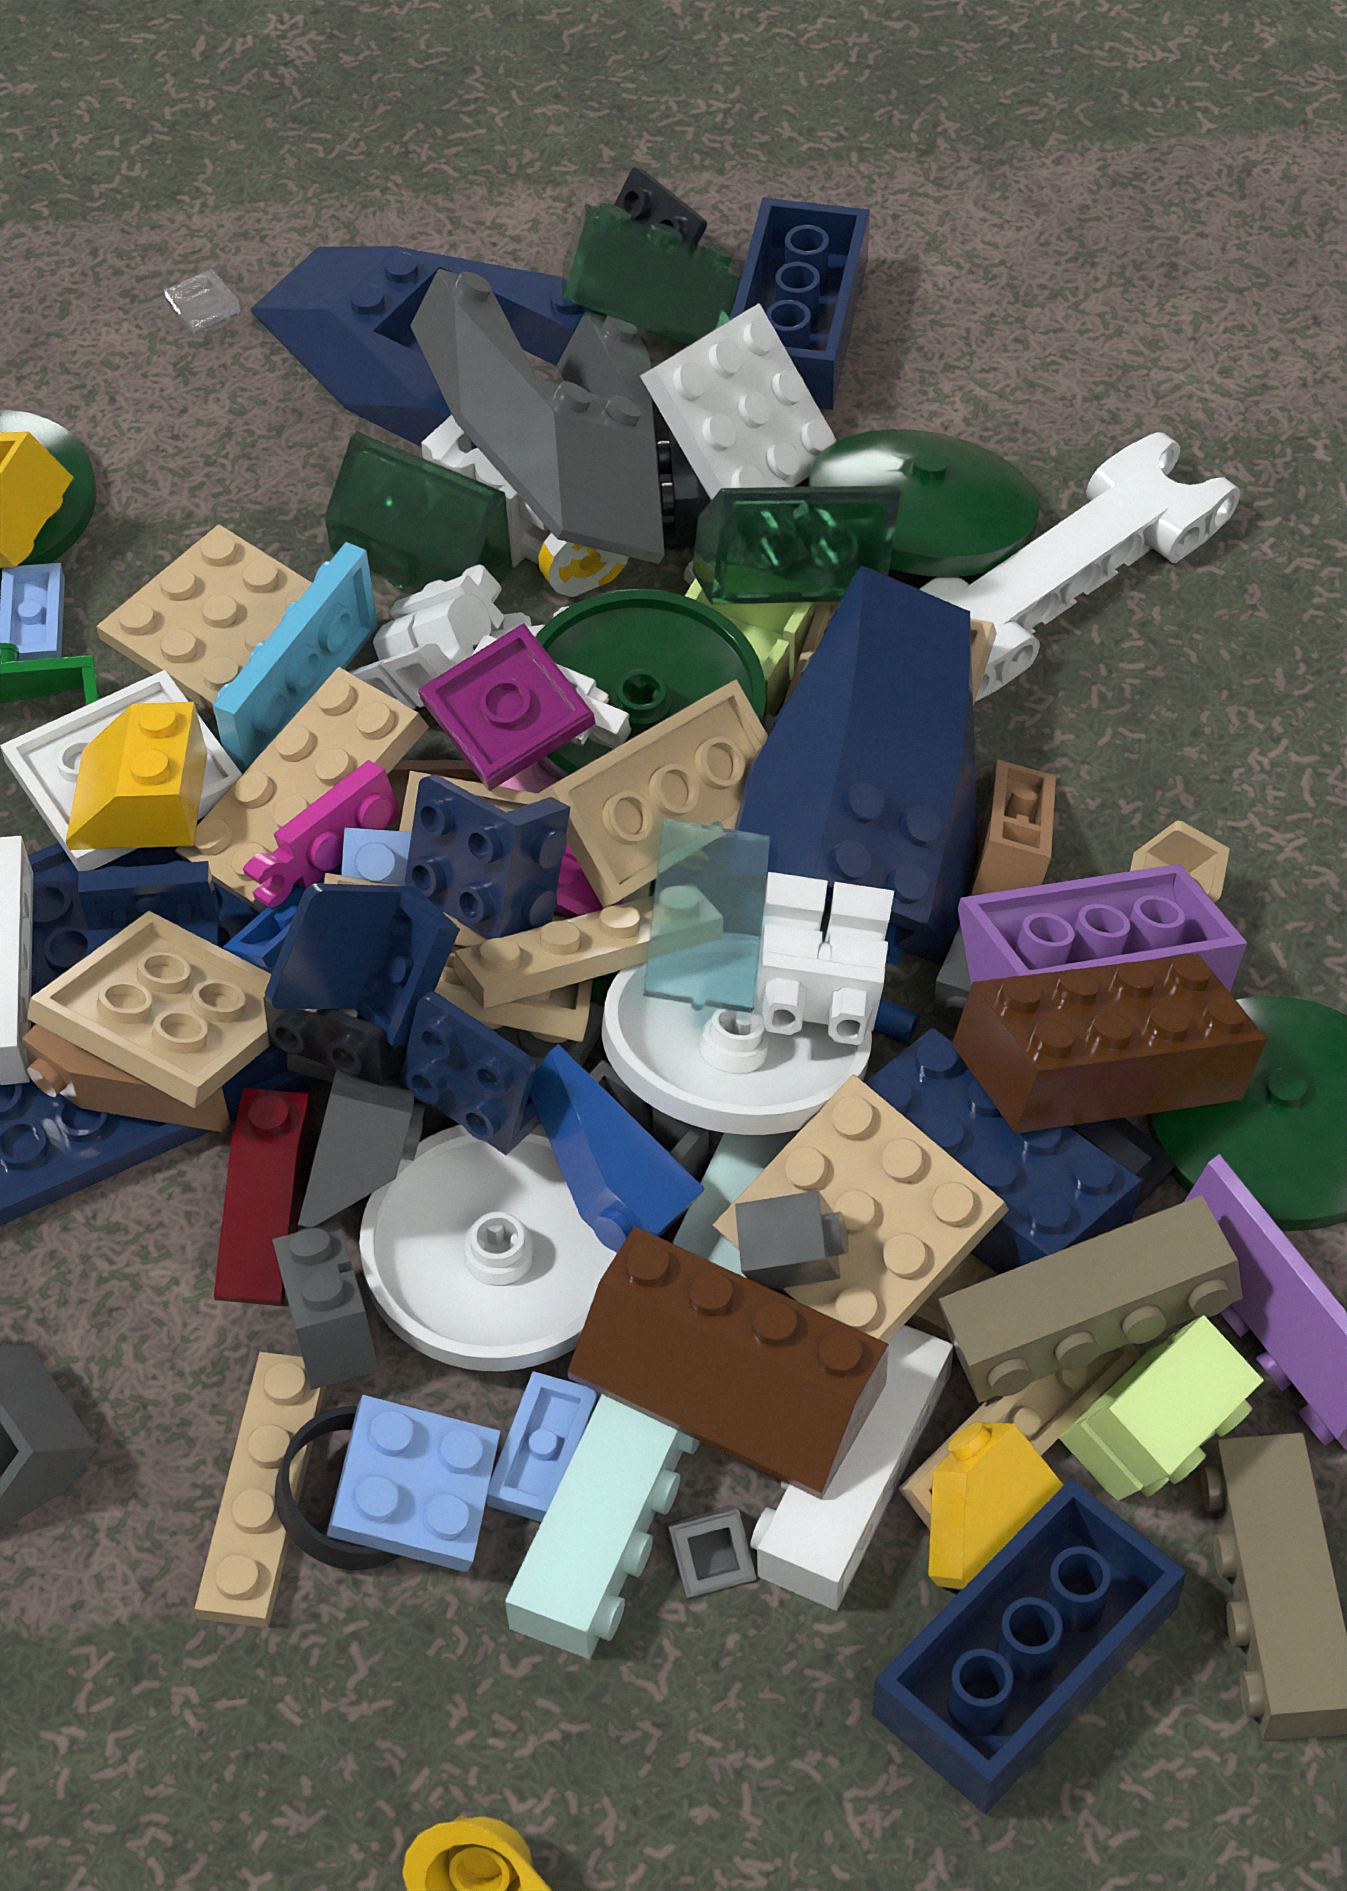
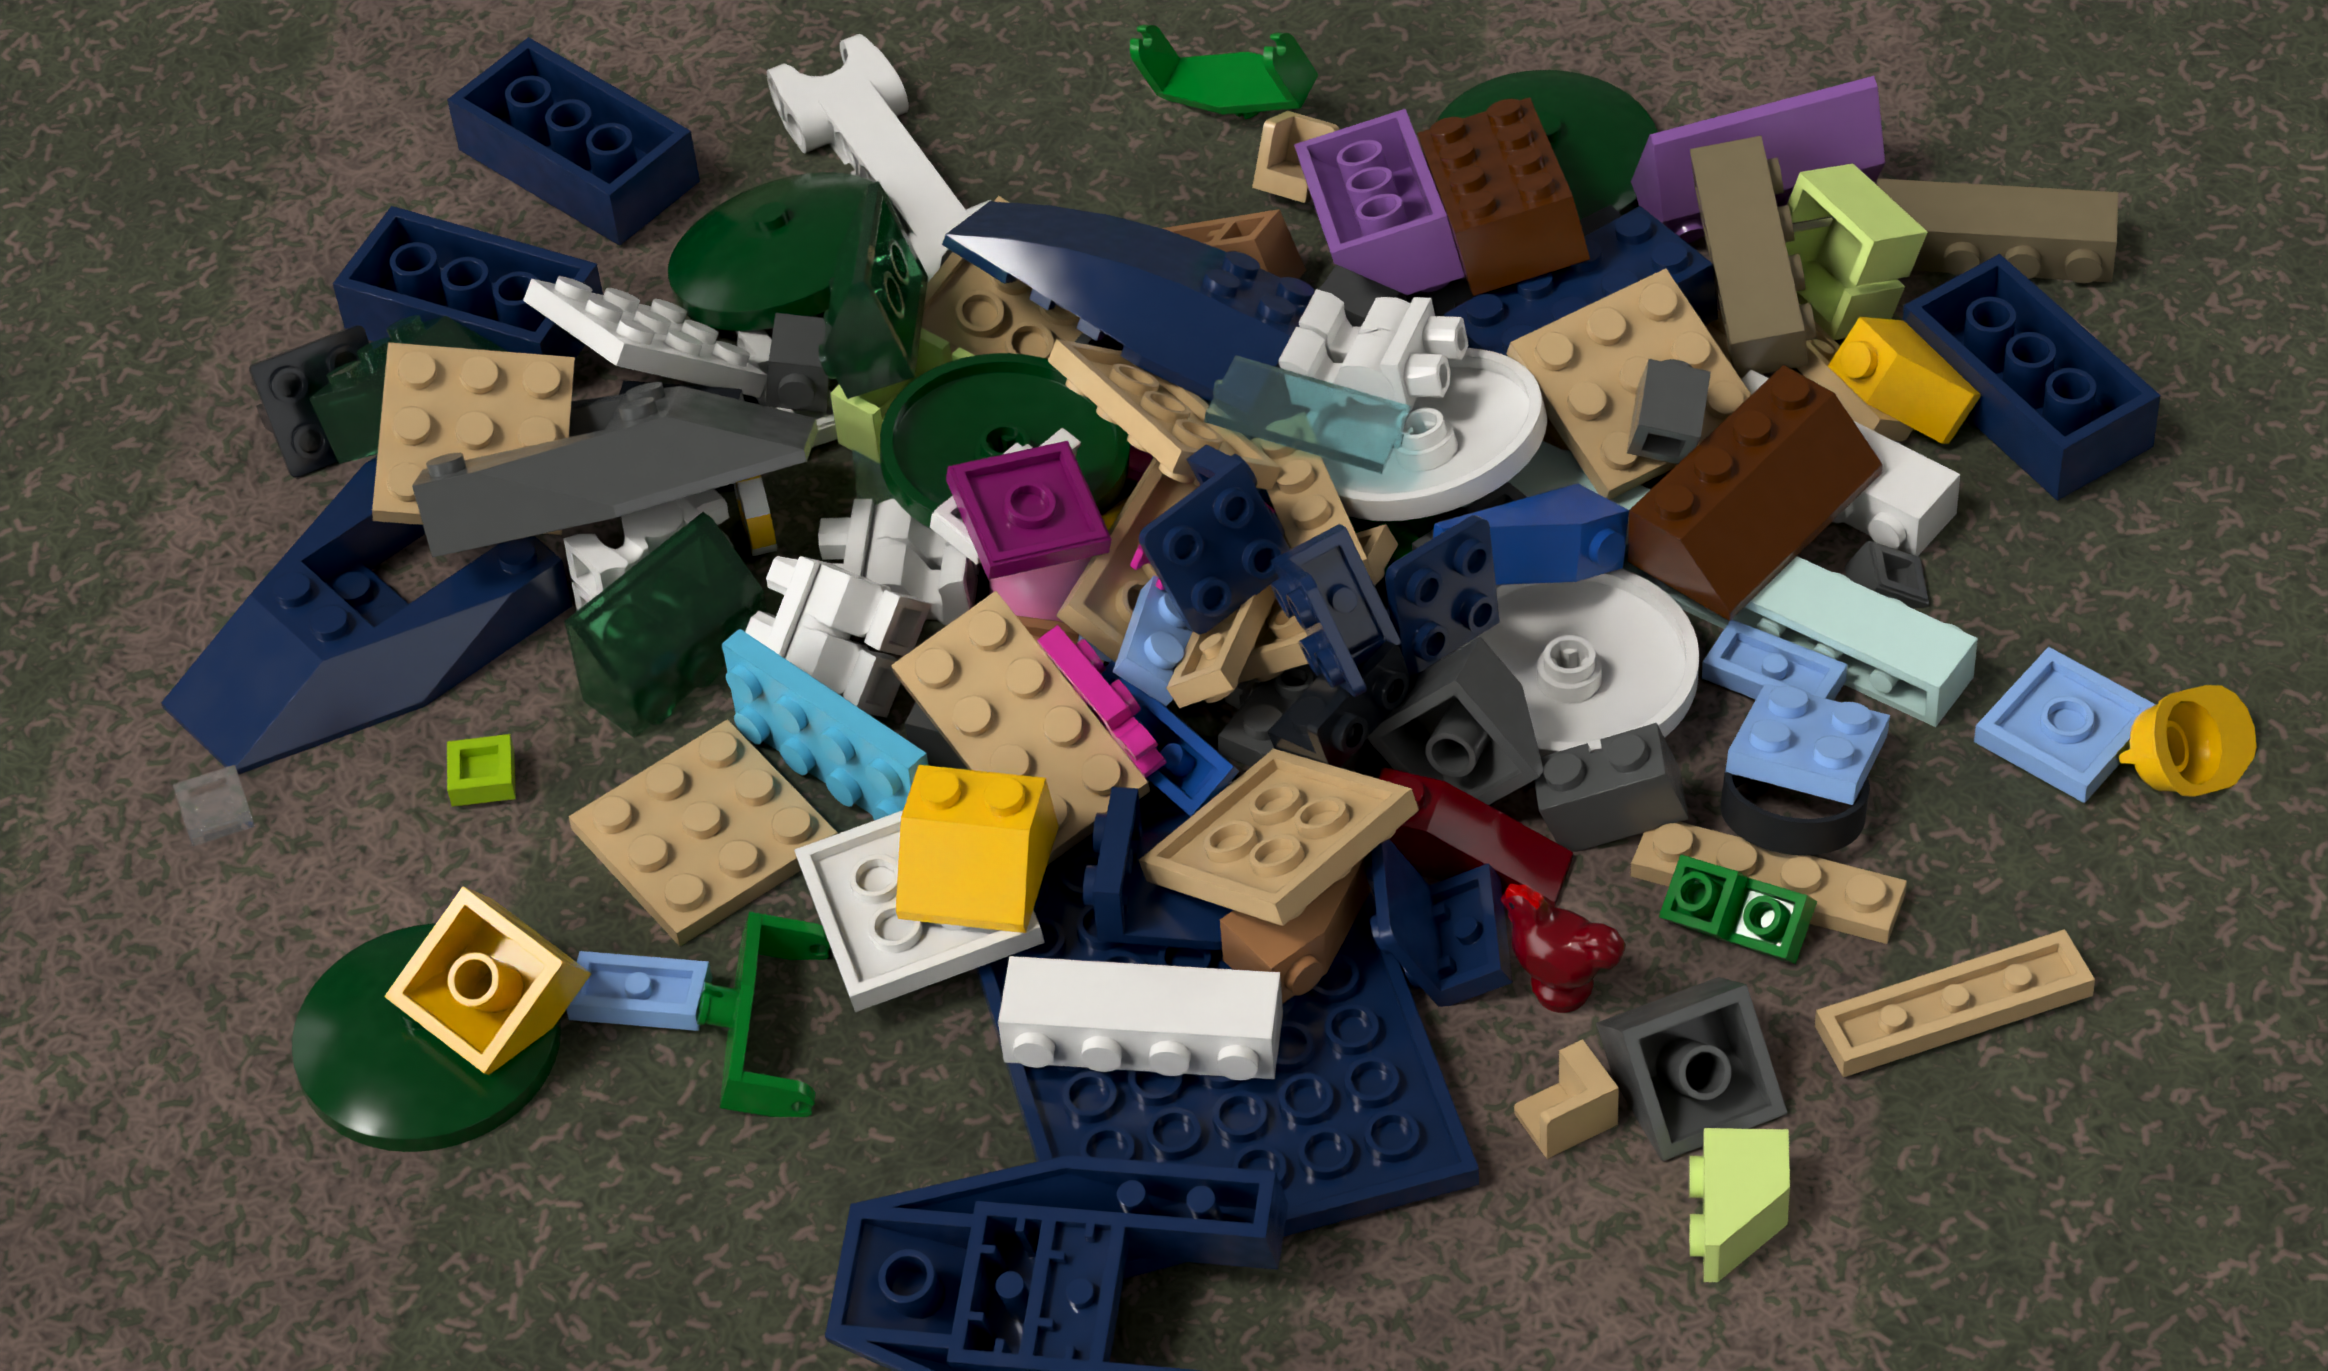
camera: 75 degrees left, 5 degrees down
(98, 1286) = (1559, 948): none -> dark red animal
(103, 1691) = (1954, 1003): none -> tan plate
(135, 1176) = (1441, 933): none -> dark blue bracket
(210, 1449) = (1738, 909): none -> green slope
(262, 455) = (481, 770): none -> lime plate
(513, 1755) = (2062, 724): none -> light blue plate
(576, 306) = (463, 404): none -> tan plate
(1019, 321) = (574, 140): none -> dark blue brick
(1281, 791) = (1227, 81): none -> green piece

